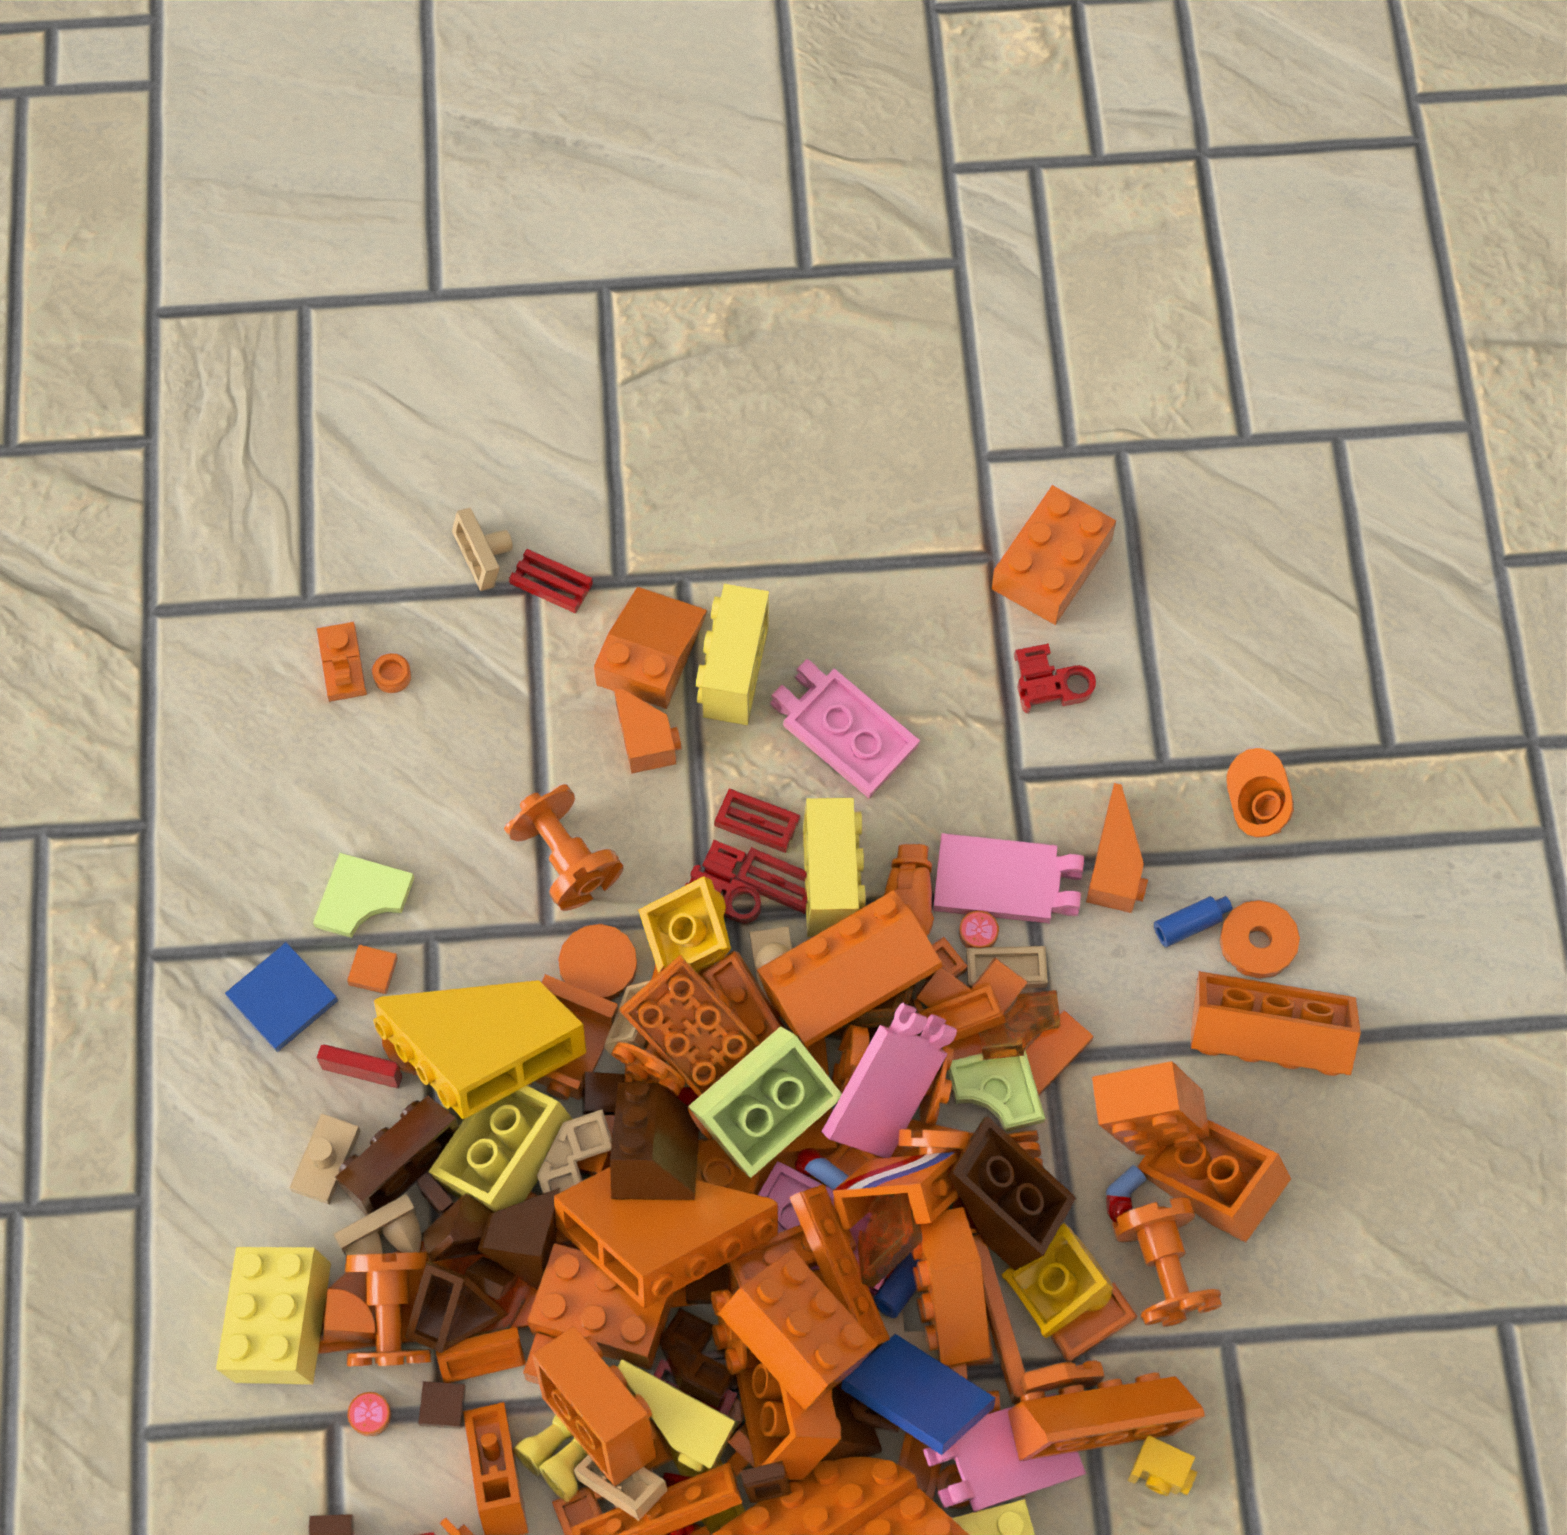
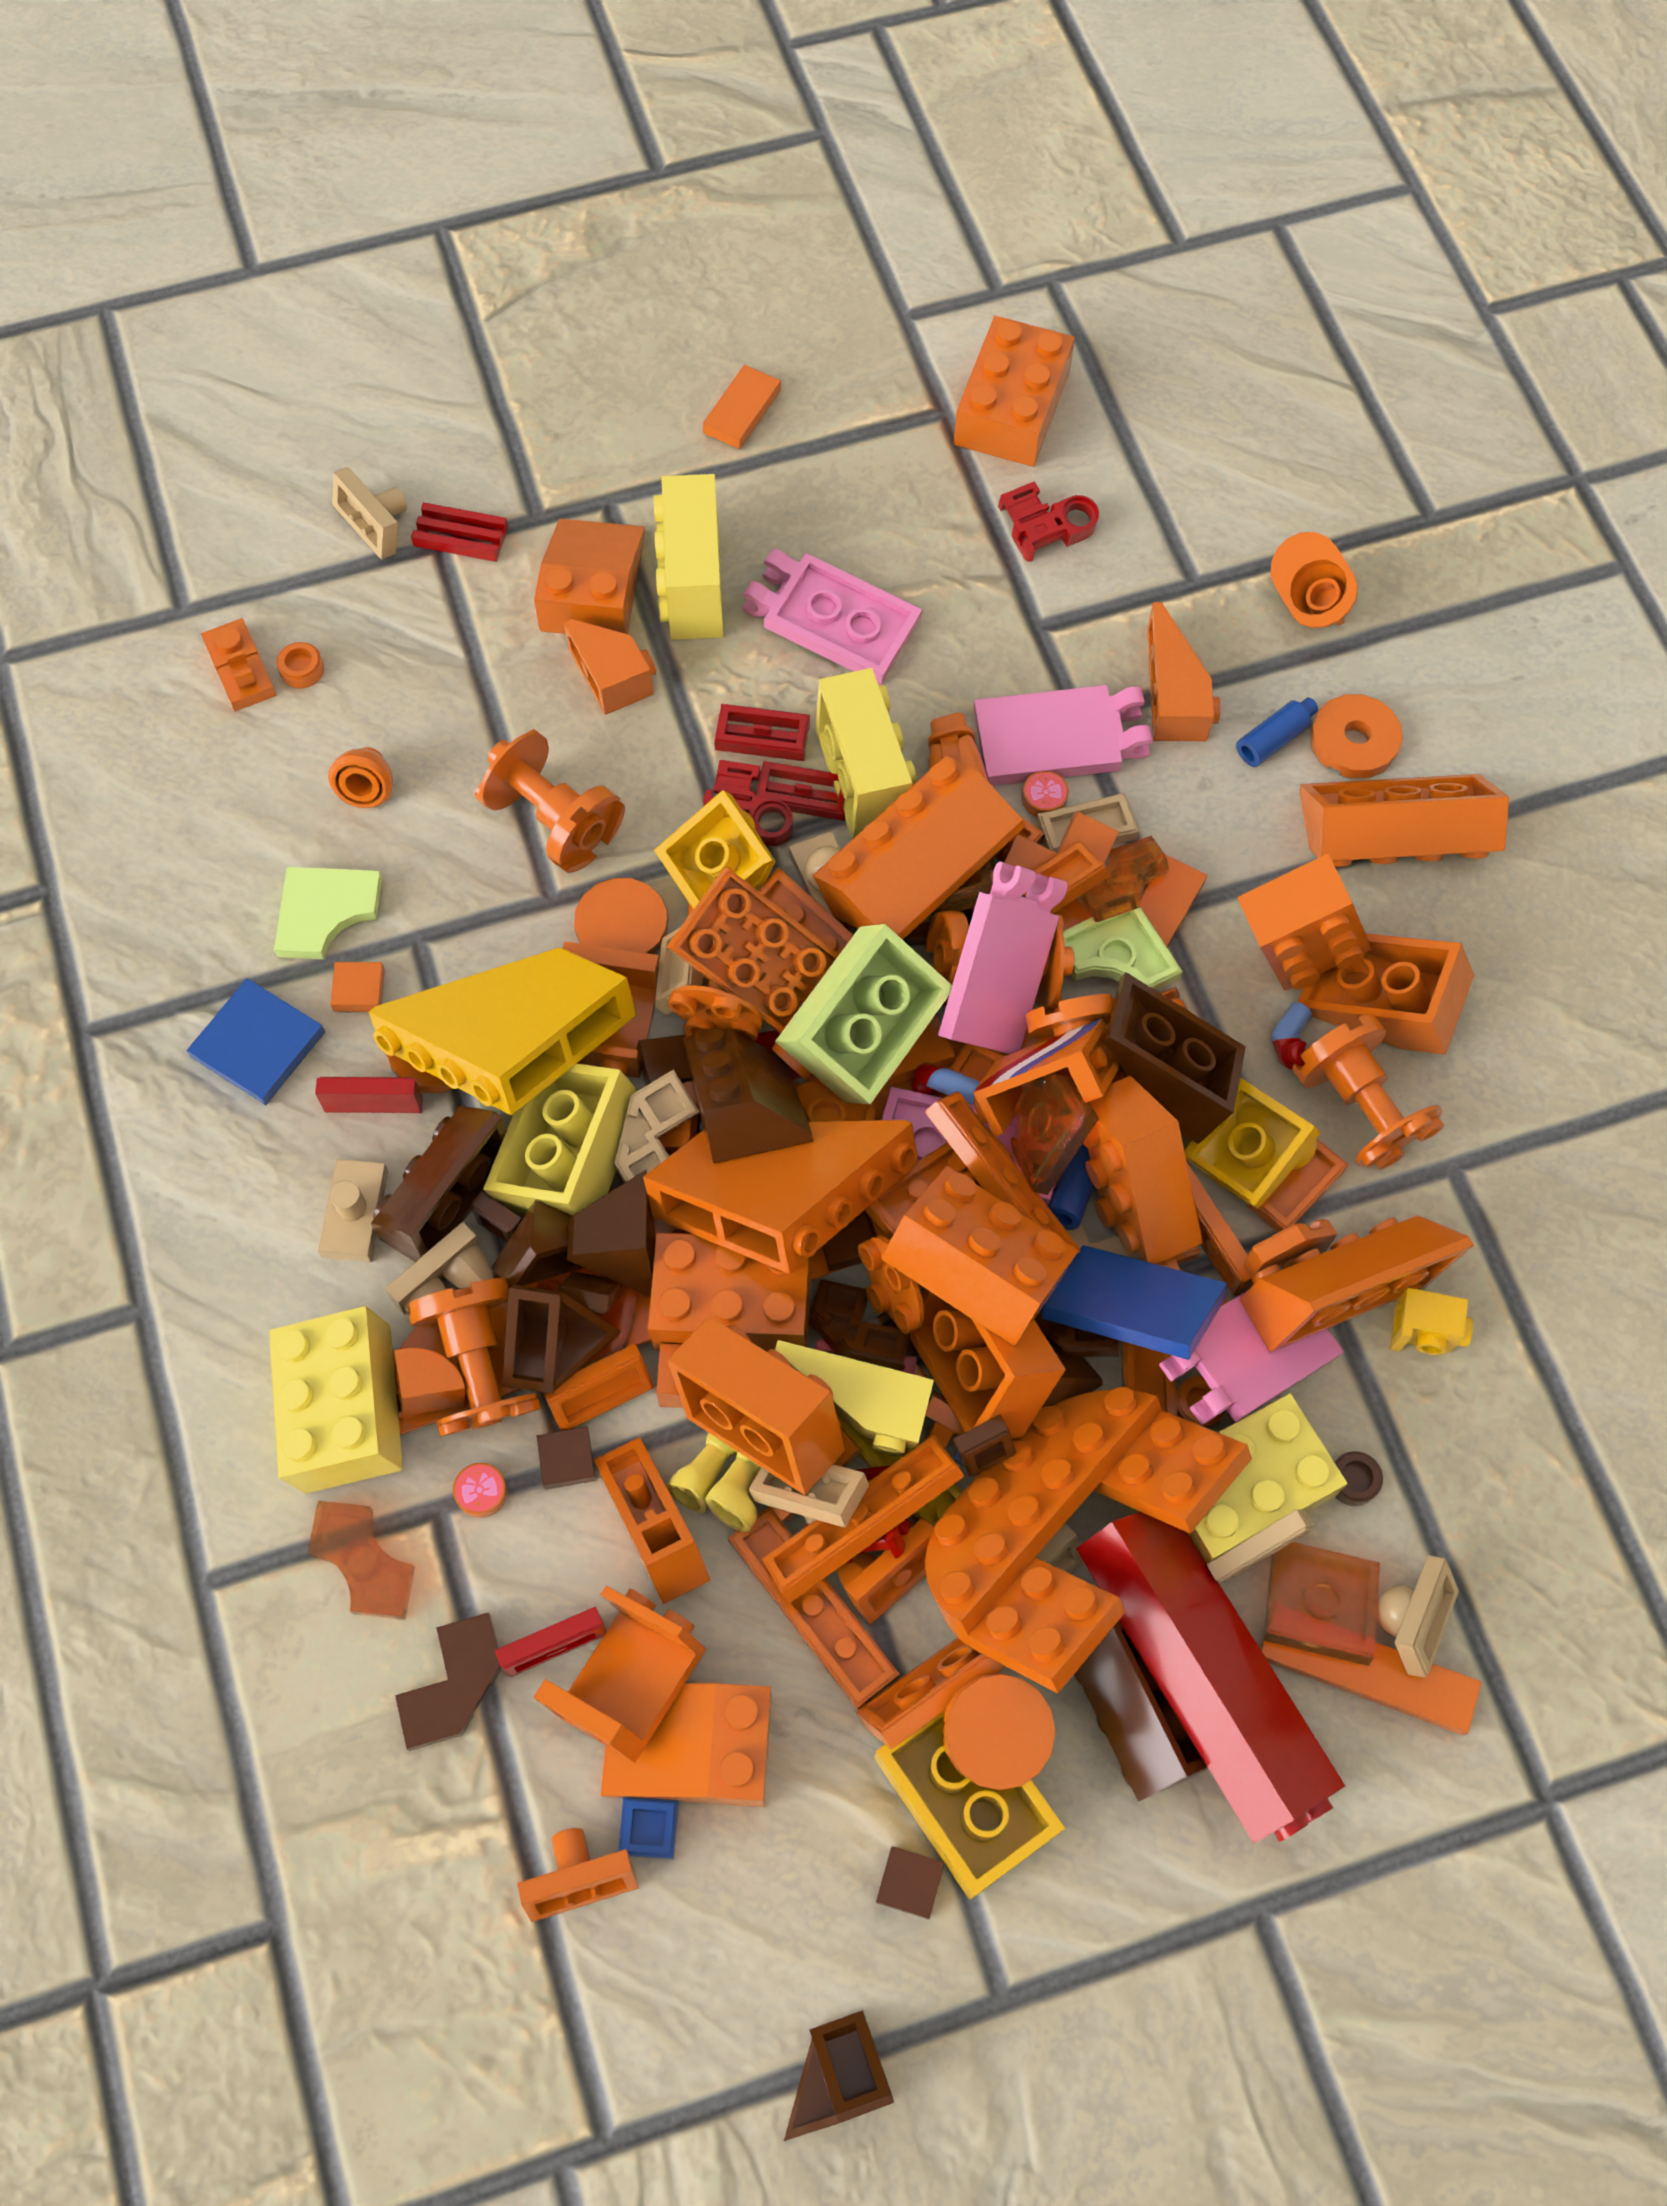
camera: 15 degrees left, 0 degrees up
(272, 1466) = (375, 1580): none -> clear orange tile
(418, 788) = (361, 778): none -> orange brick
(817, 515) = (741, 406): none -> orange tile

